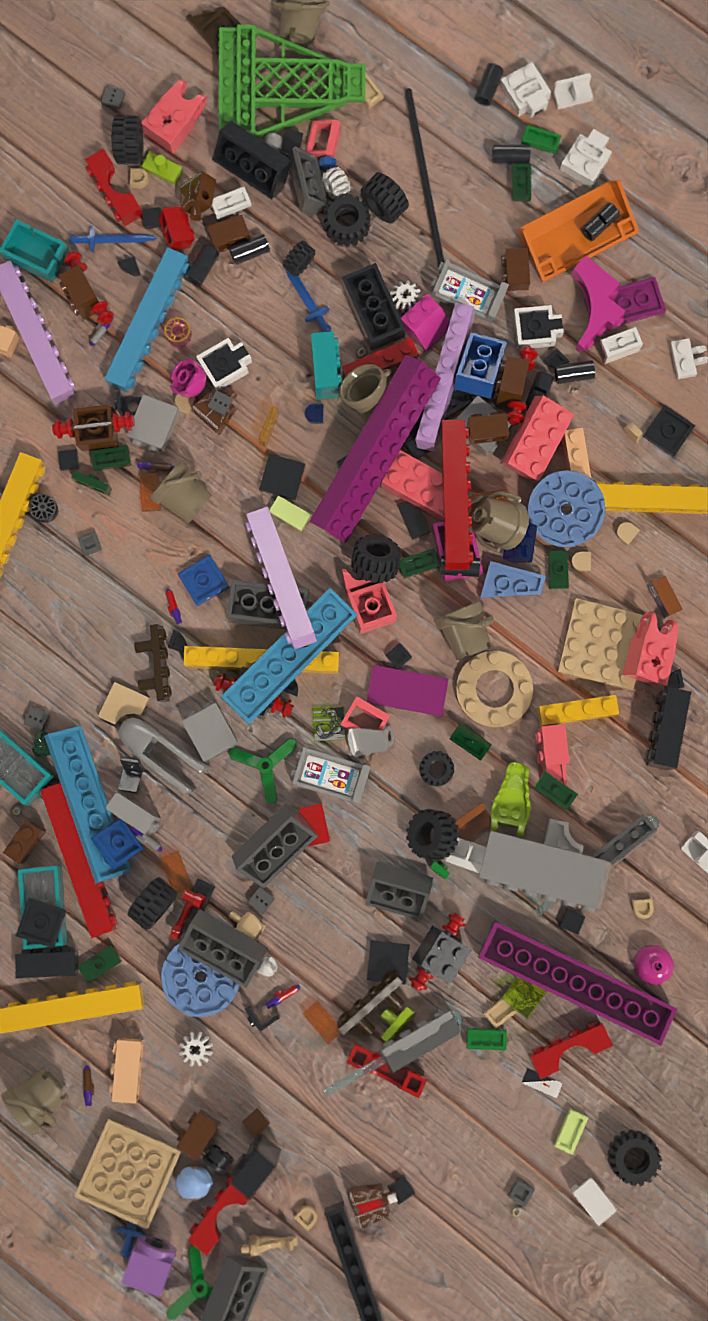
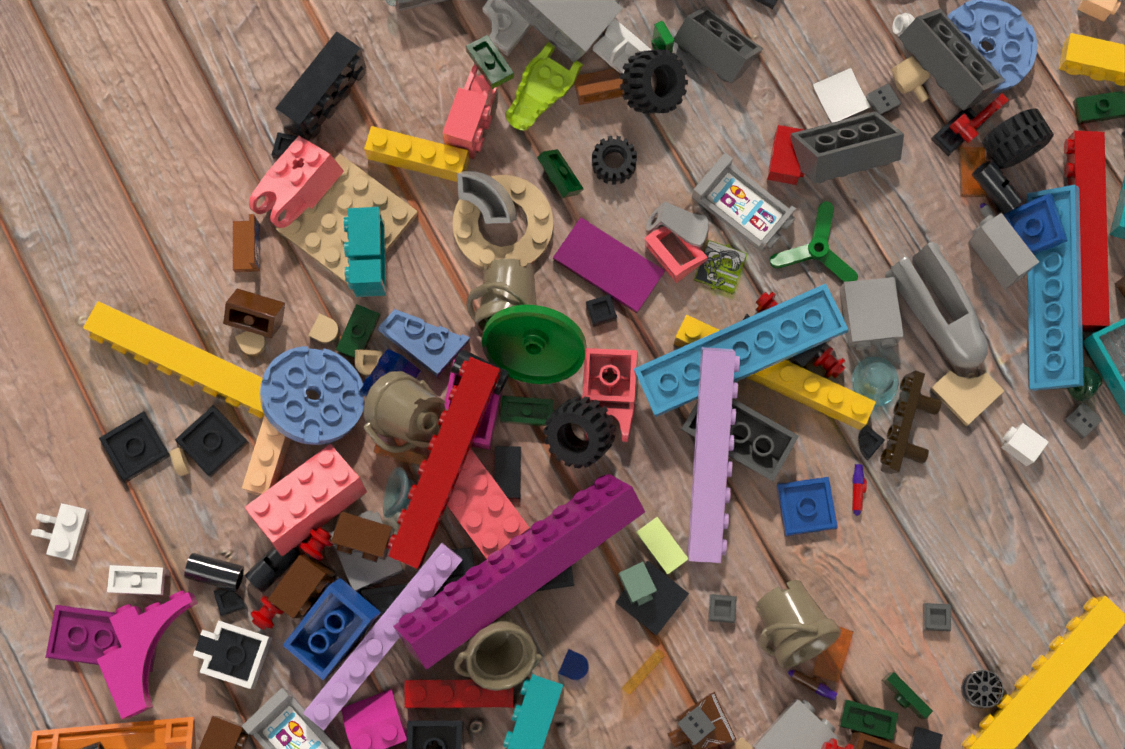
camera: 160 degrees left, 5 degrees down
(71, 683) = (1024, 444): none -> white brick
(130, 776) = (990, 298): bracket -> none
(154, 863) = (997, 186): none -> black pin
(189, 687) = (876, 380): none -> clear light blue hat
(233, 490) = (722, 608): none -> dark grey tile
(293, 891) = (841, 95): none -> white sticker
(295, 477) = (637, 584): none -> sand green brick
(432, 601) = (534, 344): none -> green dish
(479, 470) = (396, 492): none -> clear light blue hat
(513, 697) = (487, 196): none -> light grey brick
(541, 552) = (366, 360): none -> tan tile
(577, 617) = (365, 251): none -> teal piece
(619, 456) = (211, 441): none -> black tile
(634, 549) = (254, 313): none -> reddish brown brick

